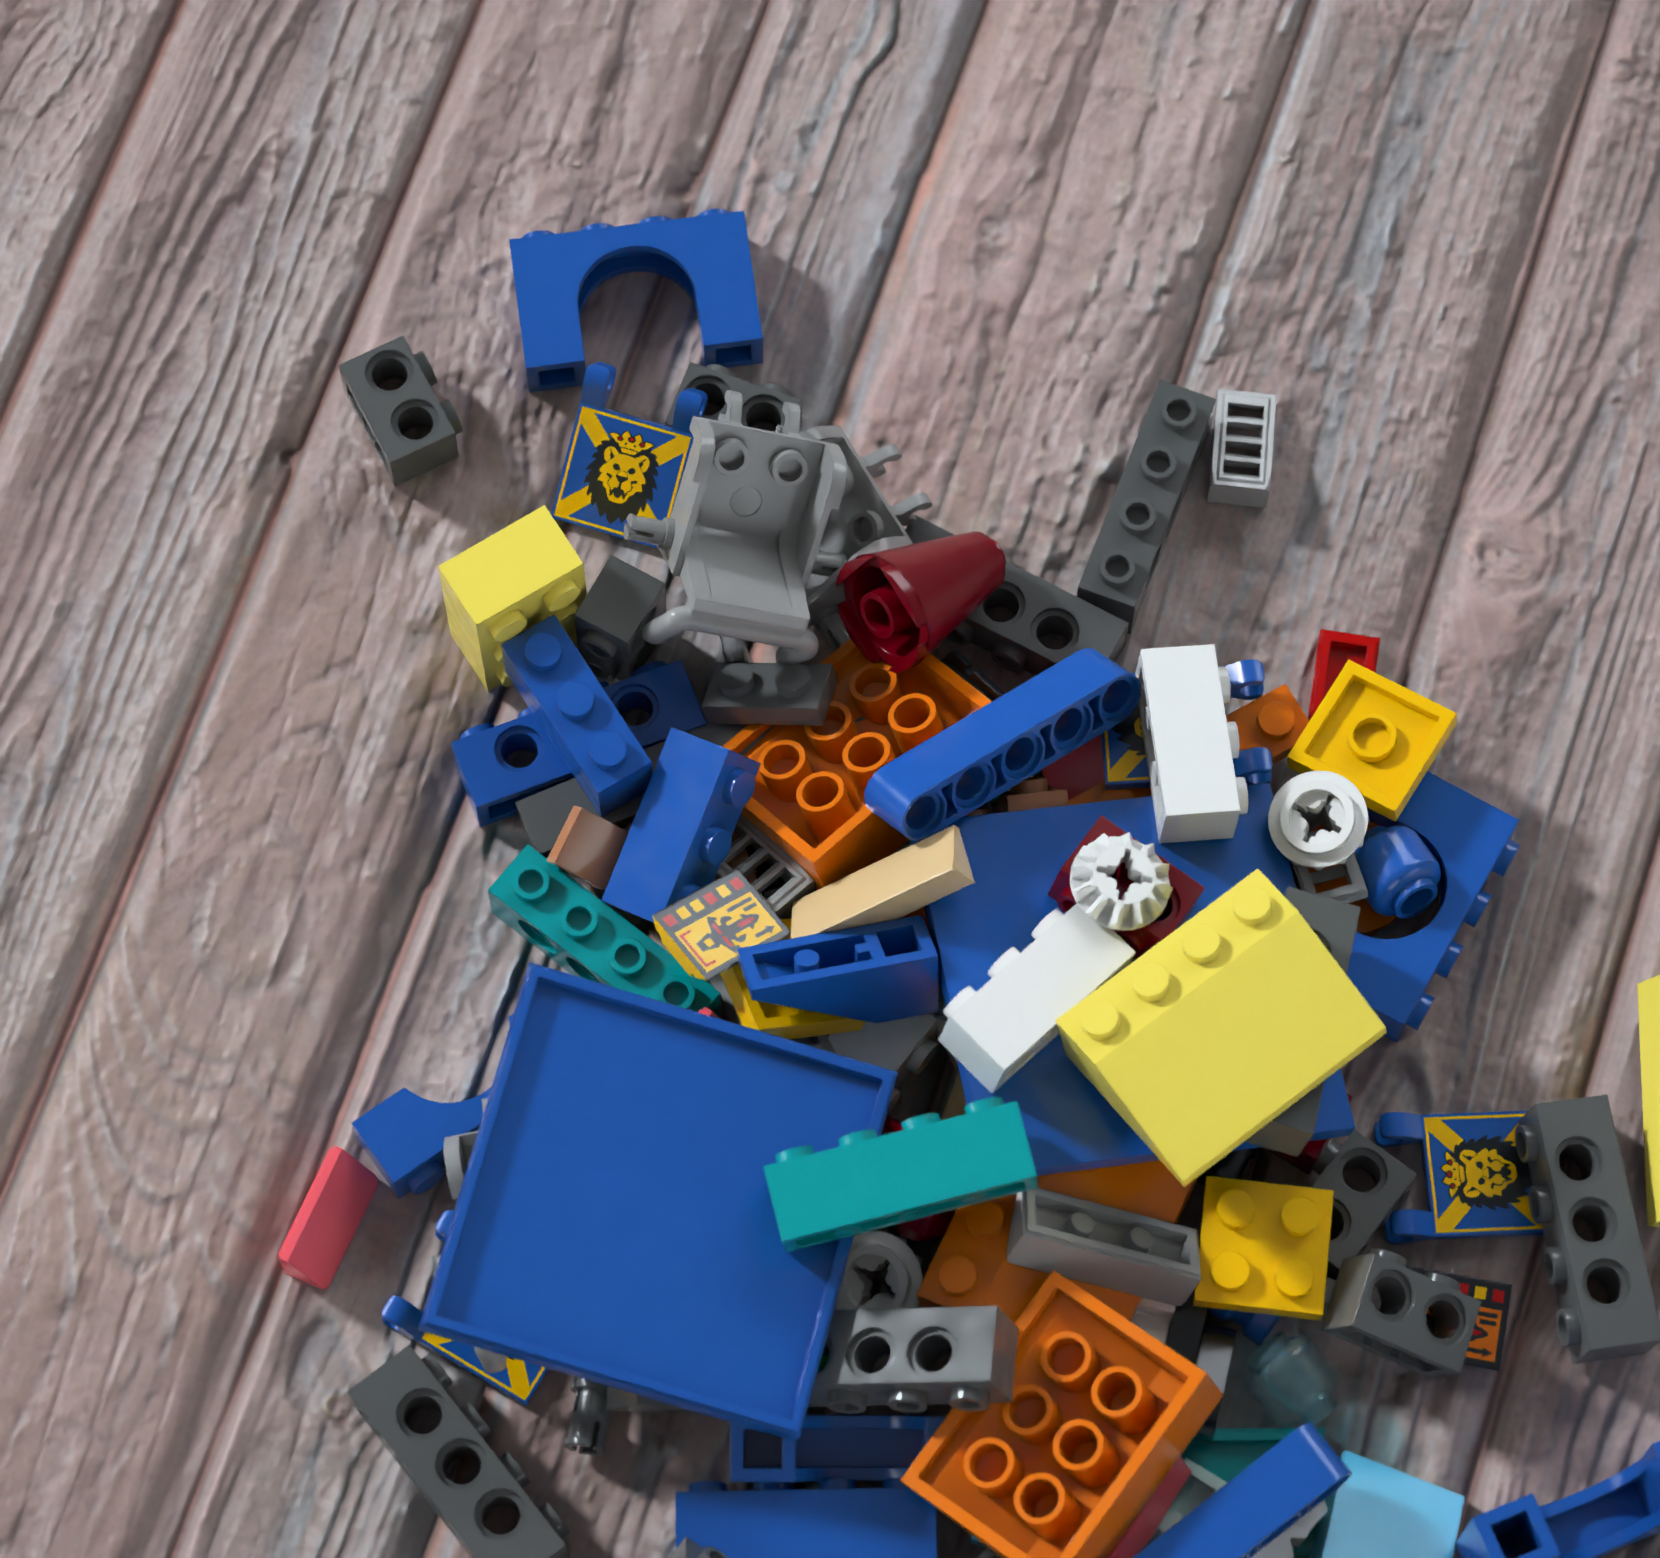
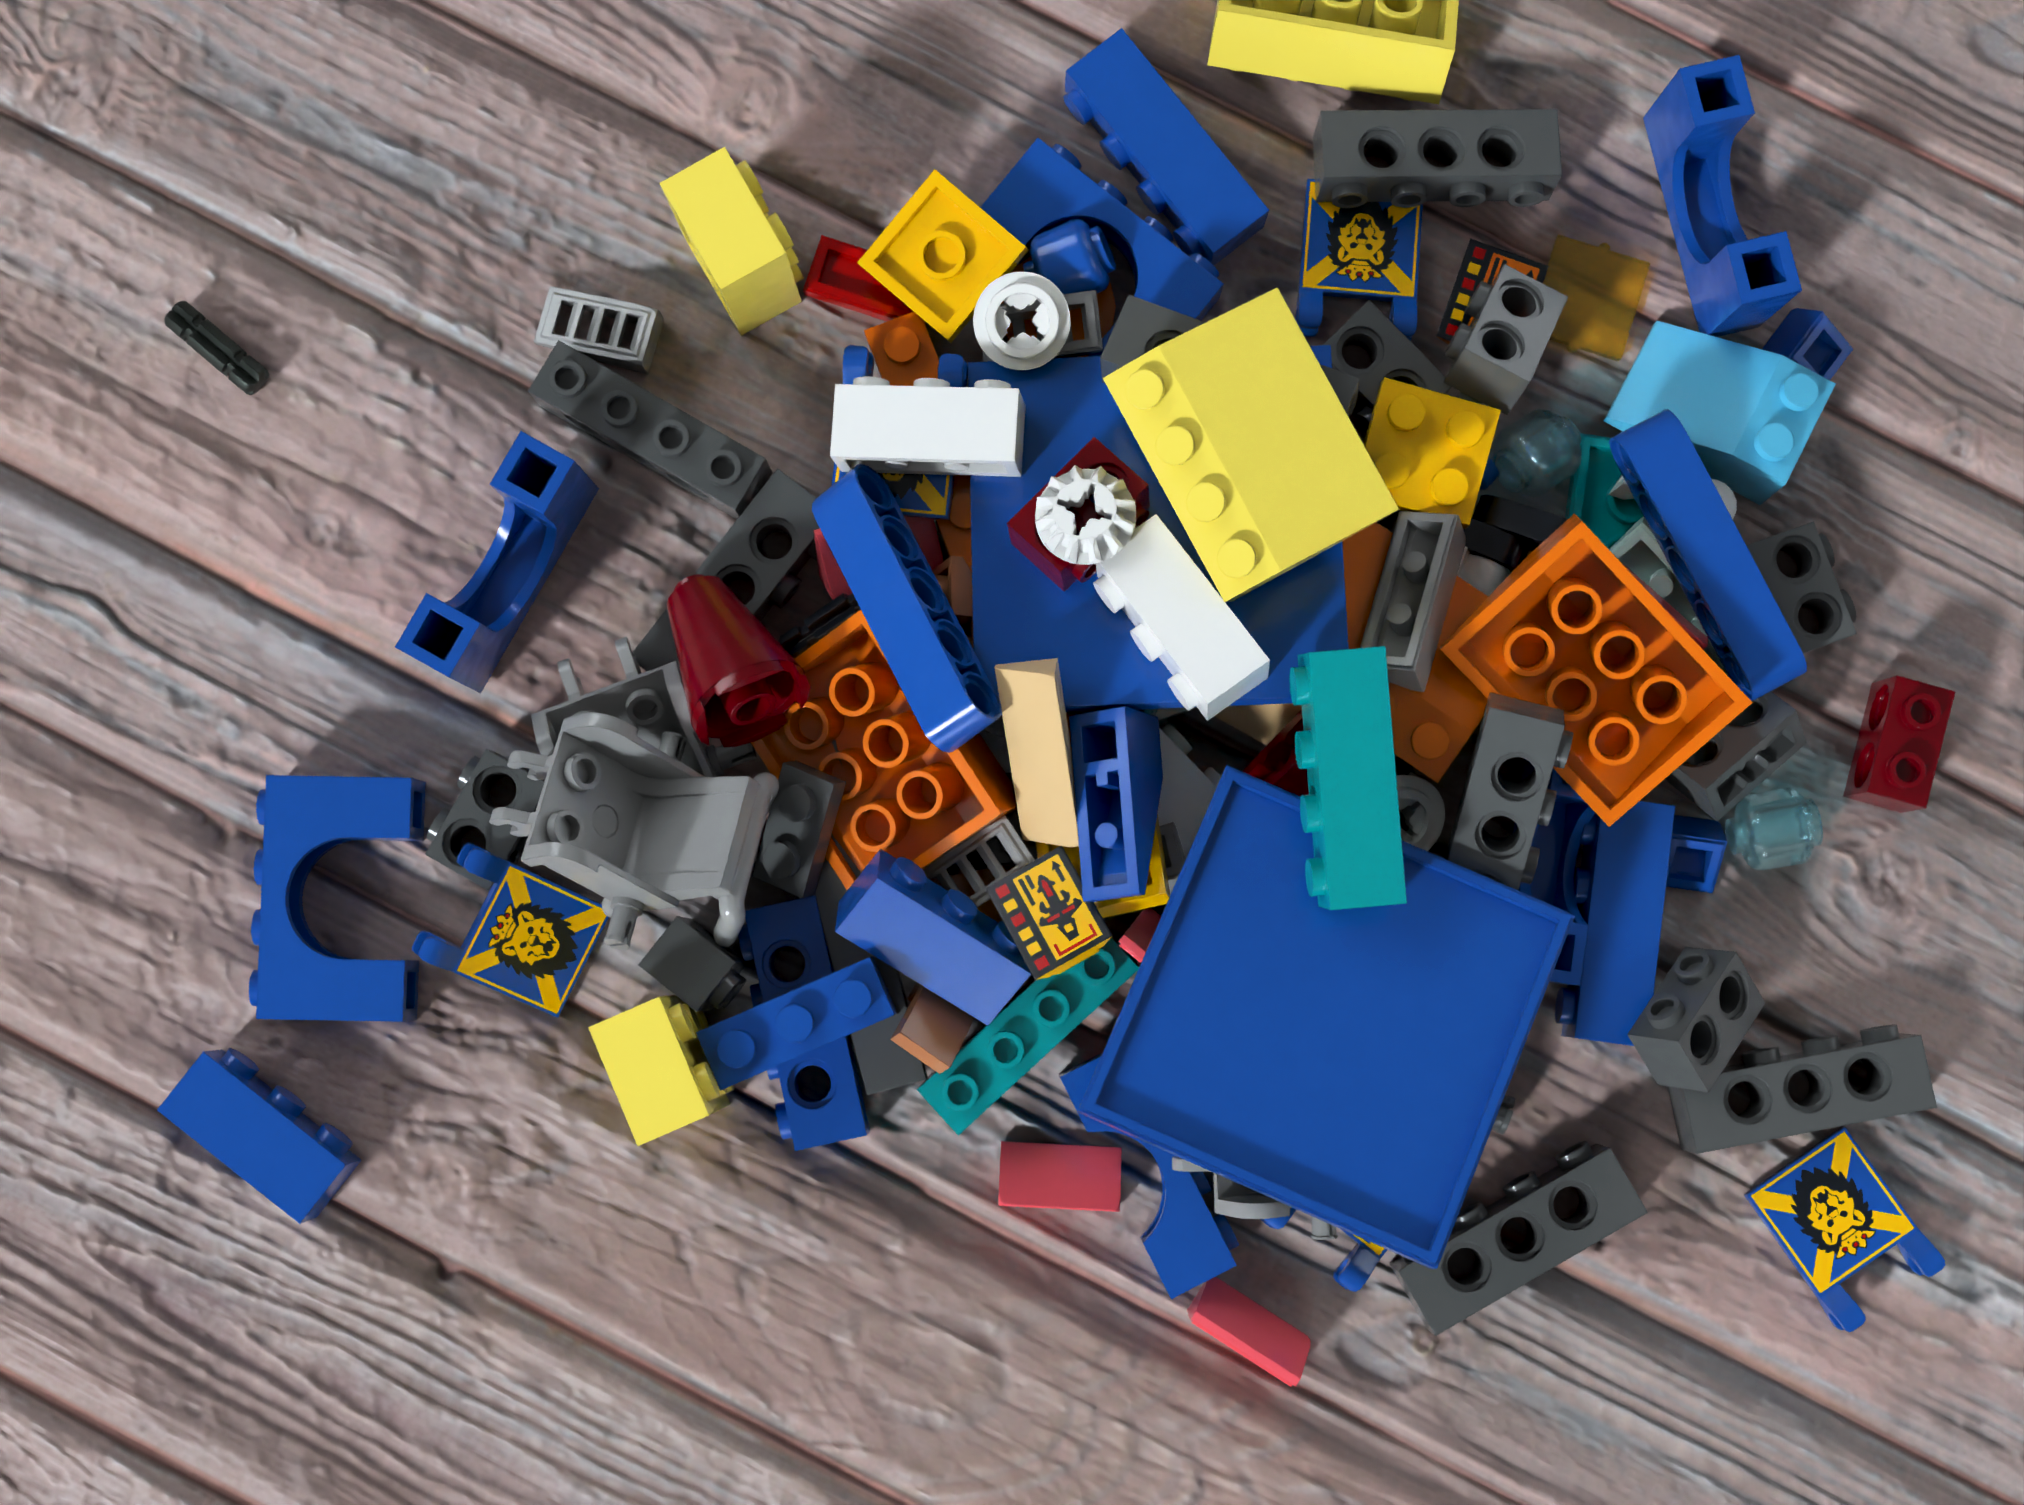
camera: 80 degrees left, 15 degrees up
(392, 413) = (423, 1163): dark grey brick -> none
(400, 264) = (261, 1133): none -> blue brick
(459, 1011) = (1060, 1176): none -> coral slope
(914, 373) = (542, 508): none -> blue arch
(1154, 107) = (216, 347): none -> pearl dark grey axle
(1343, 539) = (735, 239): none -> light yellow brick
(1476, 1424) = (1601, 295): none -> clear yellow piece
(1537, 955) = (1163, 149): none -> blue brick

